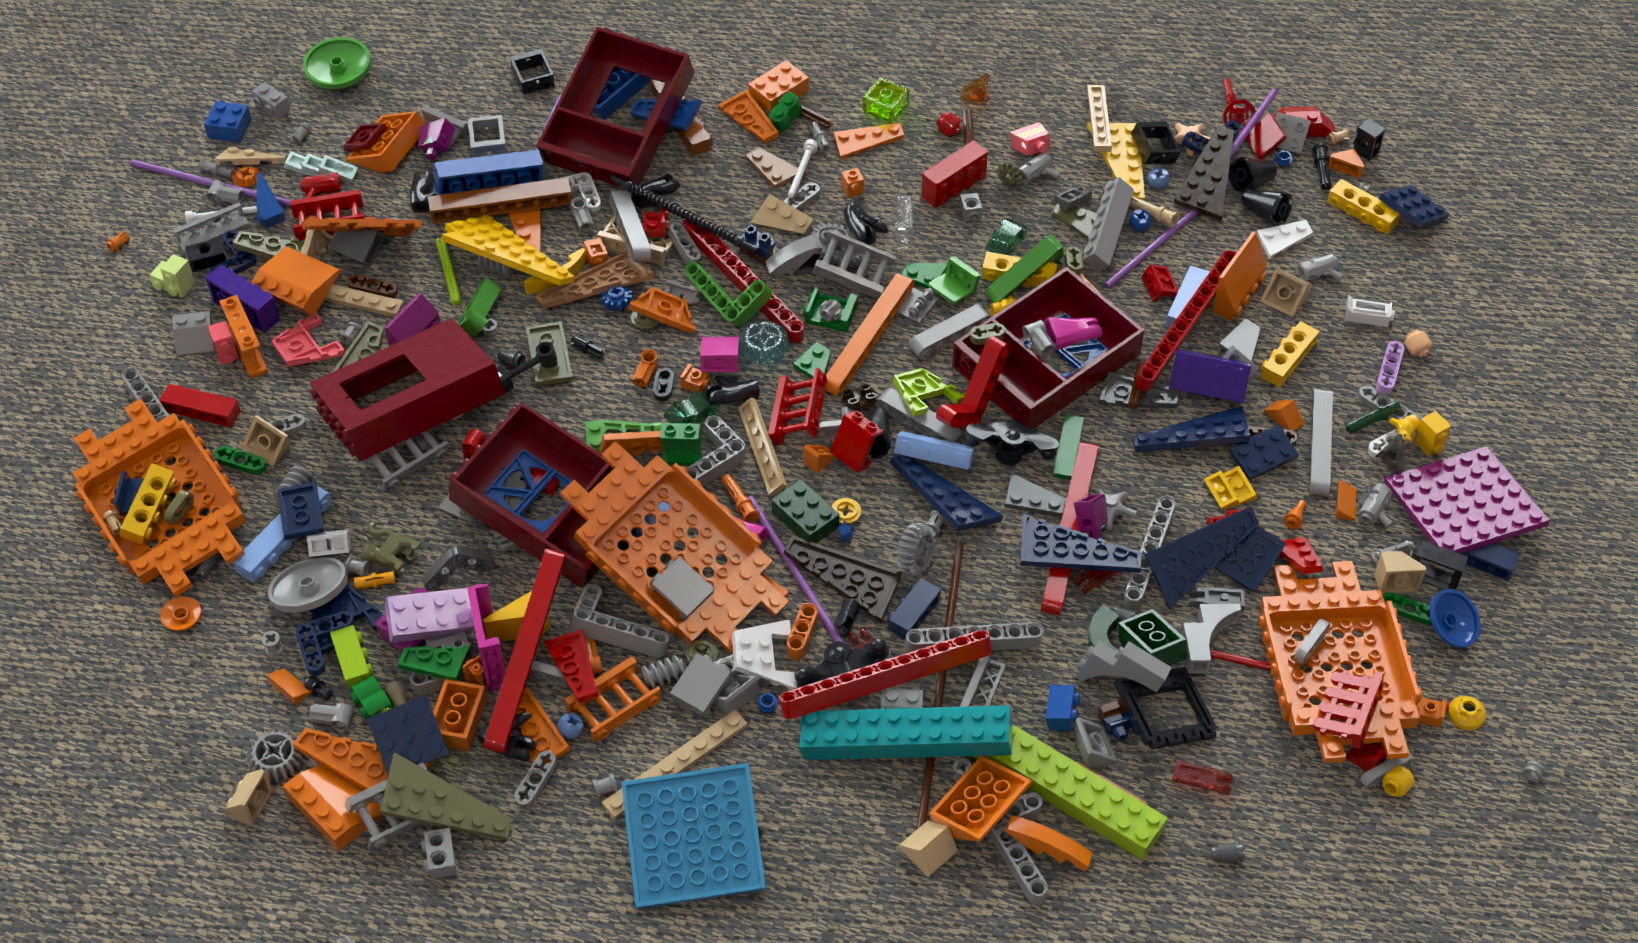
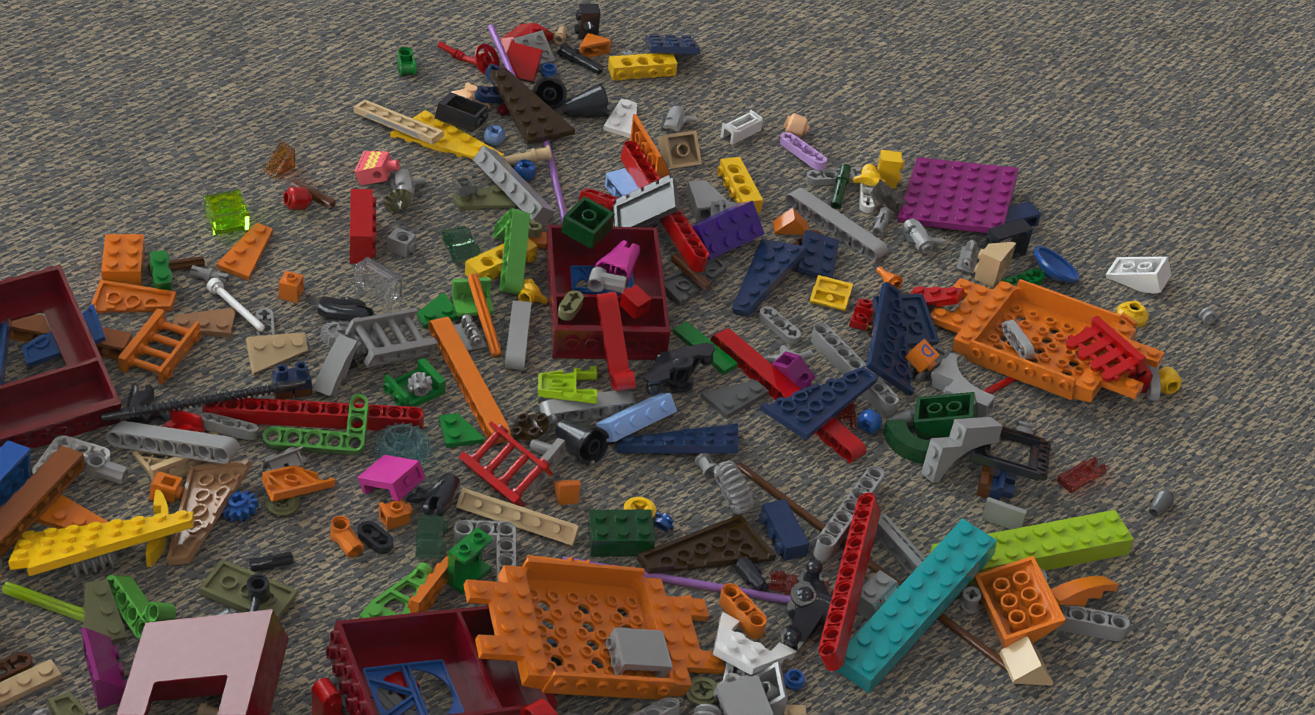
camera: 60 degrees left, 10 degrees down
(456, 296) = (101, 611): none -> olive wing
(717, 148) = (148, 334): none -> orange fence
(855, 440) = (586, 451): red panel -> none
(941, 297) = (484, 315): none -> orange axle
(1033, 366) = (635, 301): none -> red brick
(1062, 707) = (959, 504): blue brick -> none
(1086, 284) = (588, 222): none -> dark green brick
(1096, 593) = (869, 421): none -> blue piece
(1150, 471) = (788, 333): none -> light grey beam
(1170, 309) = (647, 203): none -> hinge
(1178, 77) = (406, 61): none -> green piece
(1206, 586) = (923, 356): none -> orange brick
(1213, 706) = (1026, 427): none -> light grey bush
(1345, 501) = (899, 250): orange slope -> none
(1364, 469) = (880, 226): none -> light grey pin
(1529, 690) = (1141, 273): none -> white slope

